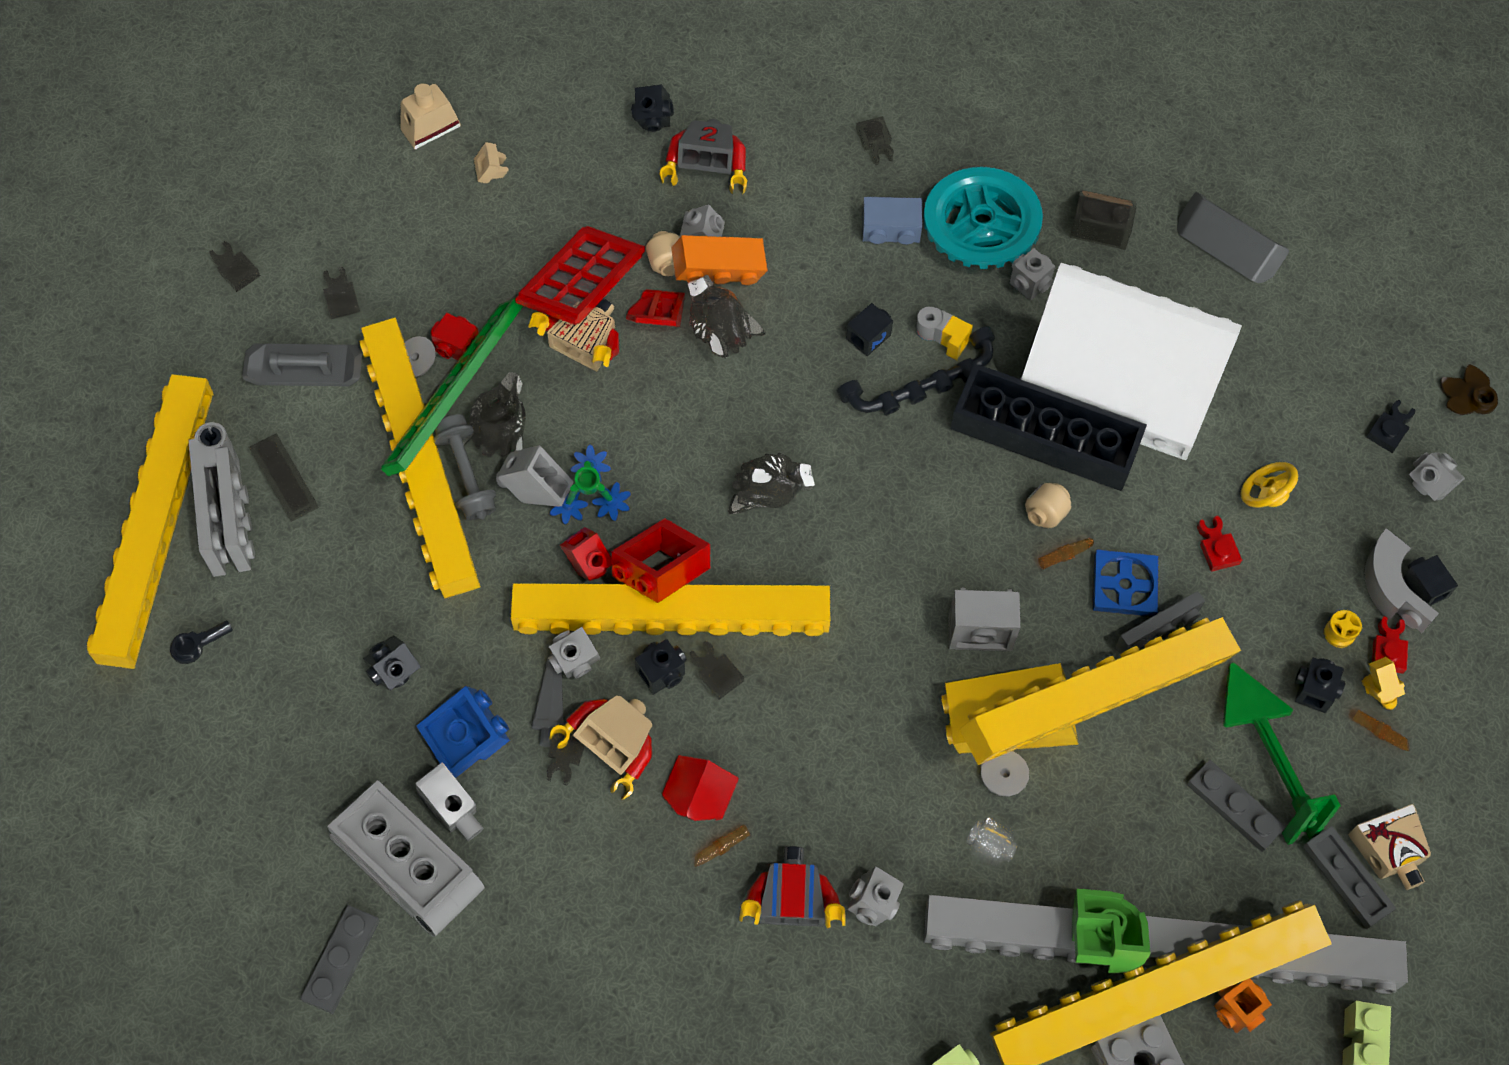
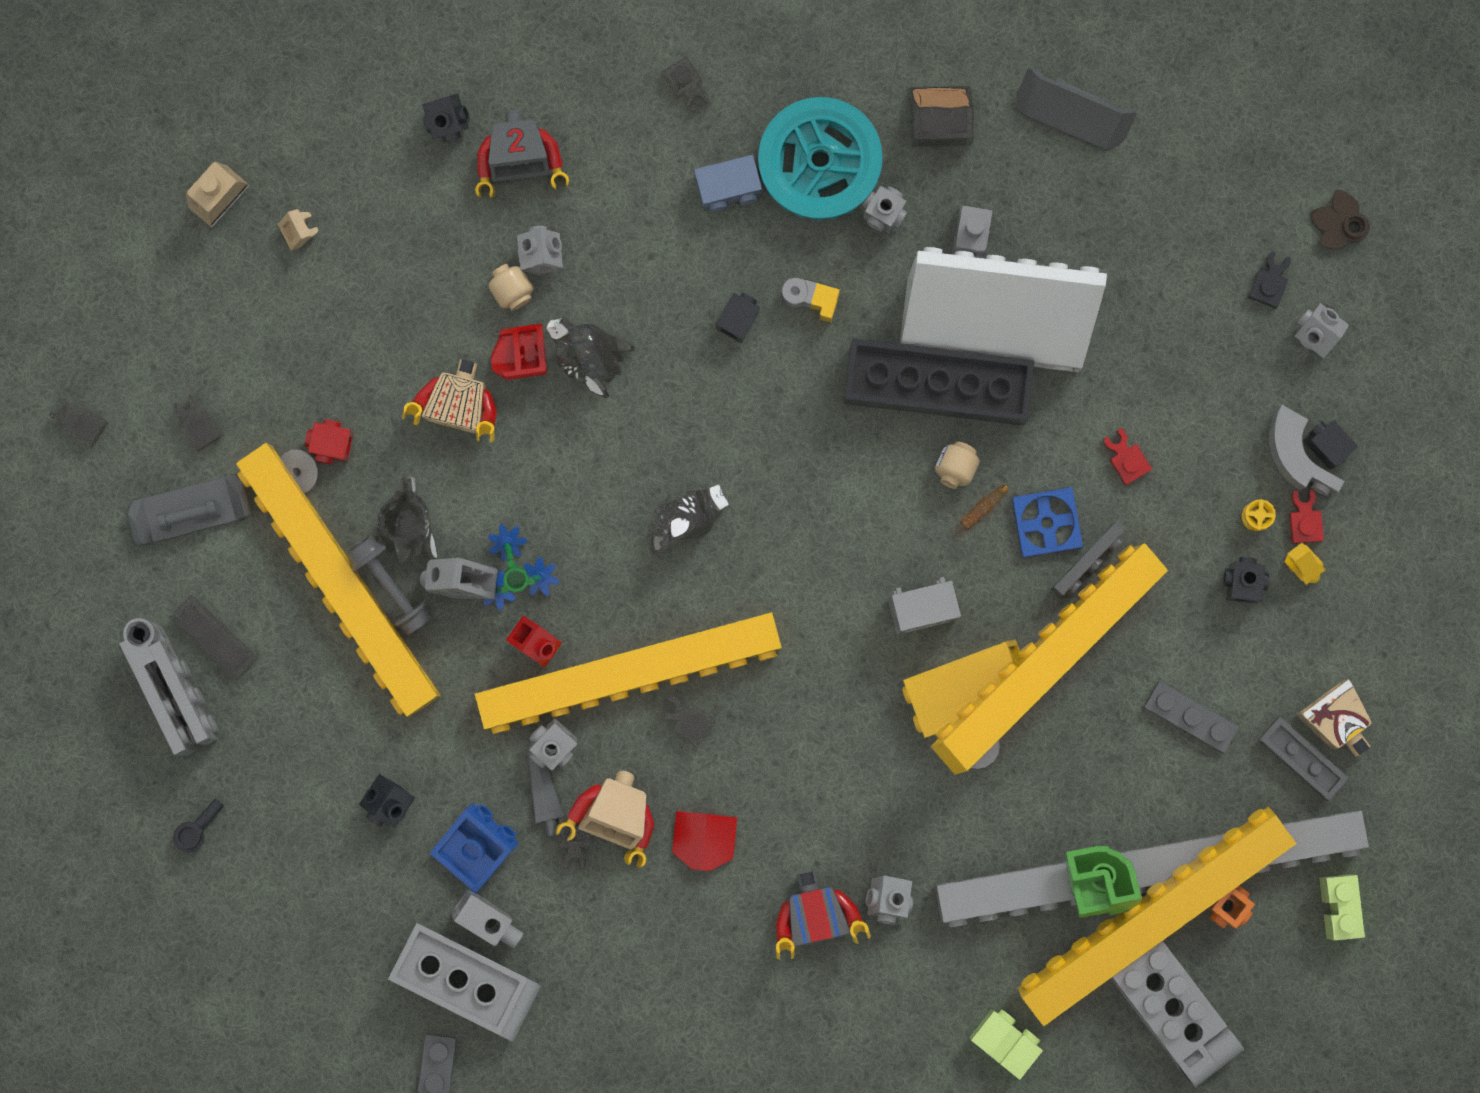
camera: 20 degrees left, 20 degrees up
(150, 524) = (106, 718): yellow brick -> none
(451, 388) = (350, 504): green tile -> none
(580, 275) = (434, 340): red piece -> none
(661, 665) = (633, 745): black brick -> none
(687, 549) = (616, 606): red window -> none
(719, 258) = (568, 287): orange brick -> none
(721, 845) = (739, 884): clear orange piece -> none
(915, 390) = (820, 355): black bar -> none
(991, 842) = (980, 817): clear head -> none
(1253, 703) = (1187, 614): green piece -> none
(1273, 489) = (1169, 388): yellow piece -> none
(1381, 730) = (1310, 606): clear orange piece -> none

